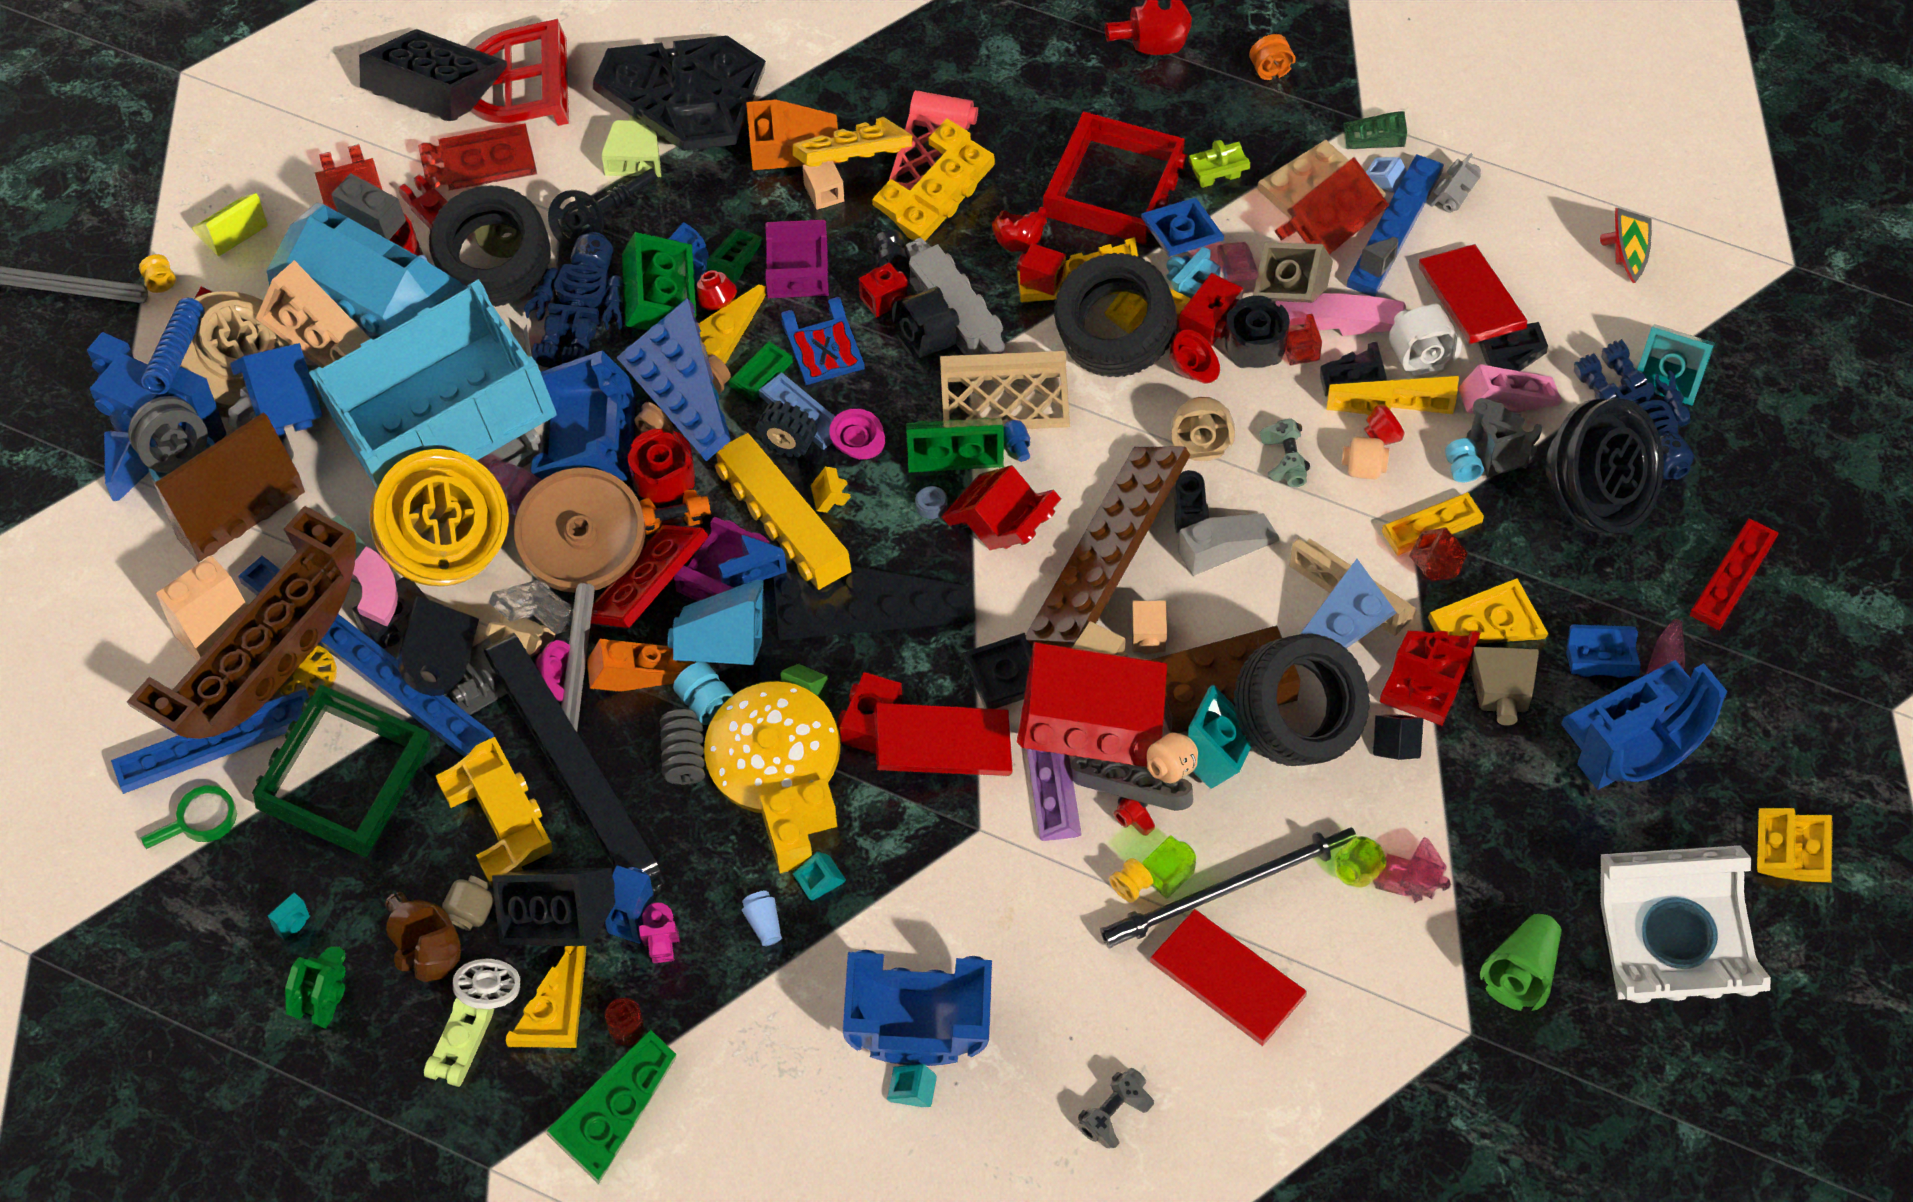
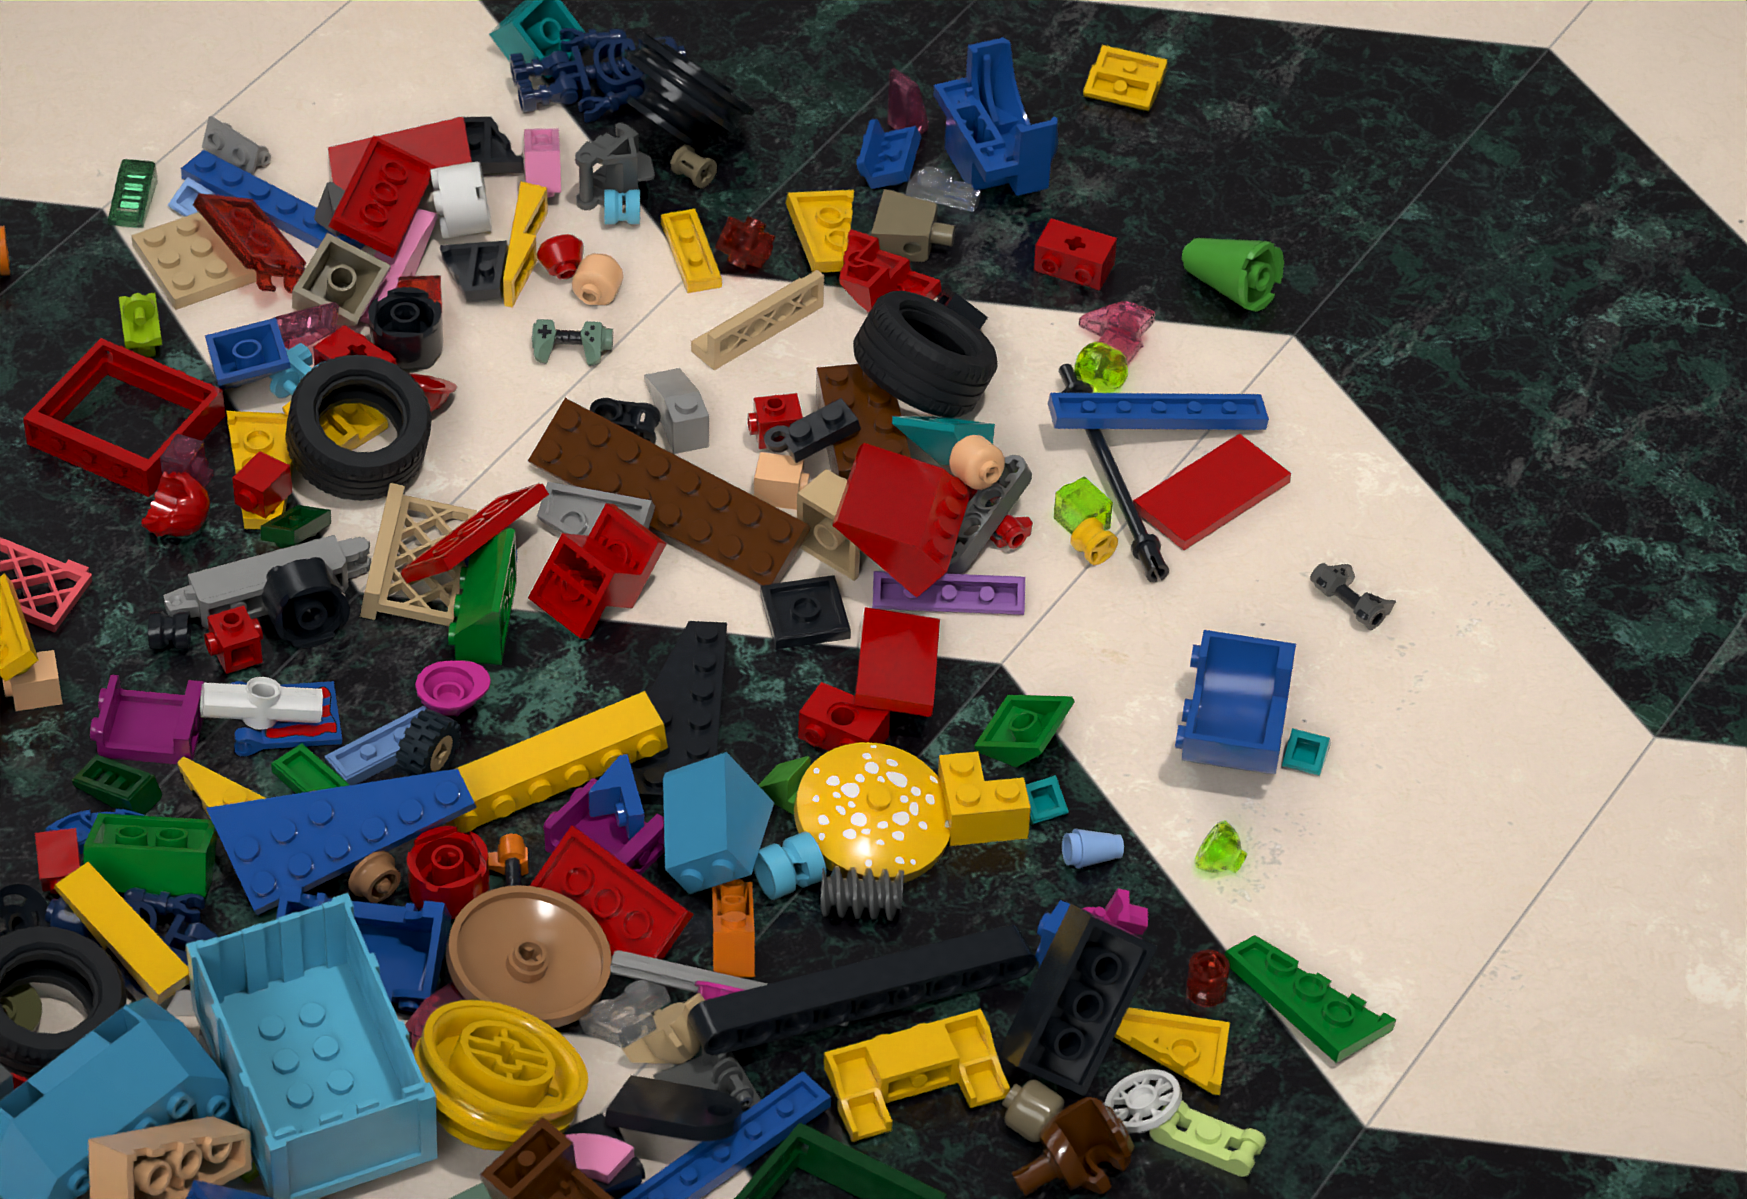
camera: 85 degrees left, 10 degrees down
(570, 267) = (124, 933): none -> yellow slope
(645, 222) = (57, 856): none -> red brick
(715, 290) = (179, 799): red cone -> none
(771, 1019) = (1220, 850): none -> clear neon green brick
(816, 329) = (261, 703): none -> white piece
(828, 490) = (518, 725): yellow tile -> none
(895, 849) = (1023, 727): none -> green slope
(931, 502) = (555, 646): sand blue tile -> none
(943, 186) = (88, 562): yellow bracket -> none
(1014, 304) = (295, 525): none -> dark green plate
(1017, 414) = (474, 533): none -> red tile
(1065, 224) = (188, 456): none -> clear pink brick
(1075, 510) = (577, 509): none -> light grey wing
(1188, 632) = (814, 431): none -> black hinge
(1203, 428) = (525, 393): tan cylinder -> none
(1216, 612) = (772, 412): none -> red brick
(1306, 914) = (1157, 411): none -> blue plate
(1351, 608) = (812, 315): medium blue wing -> none
(1392, 277) = (382, 196): none -> red tile
(1511, 841) = (1075, 254): none -> red brick
(1534, 509) = (693, 166): none -> dark tan bush
(1556, 693) = (937, 188): none -> clear plate
(1631, 241) = (362, 36): shield -> none
(1679, 924) = (1210, 167): white panel -> none
(1733, 574) = (807, 54): red tile -> none

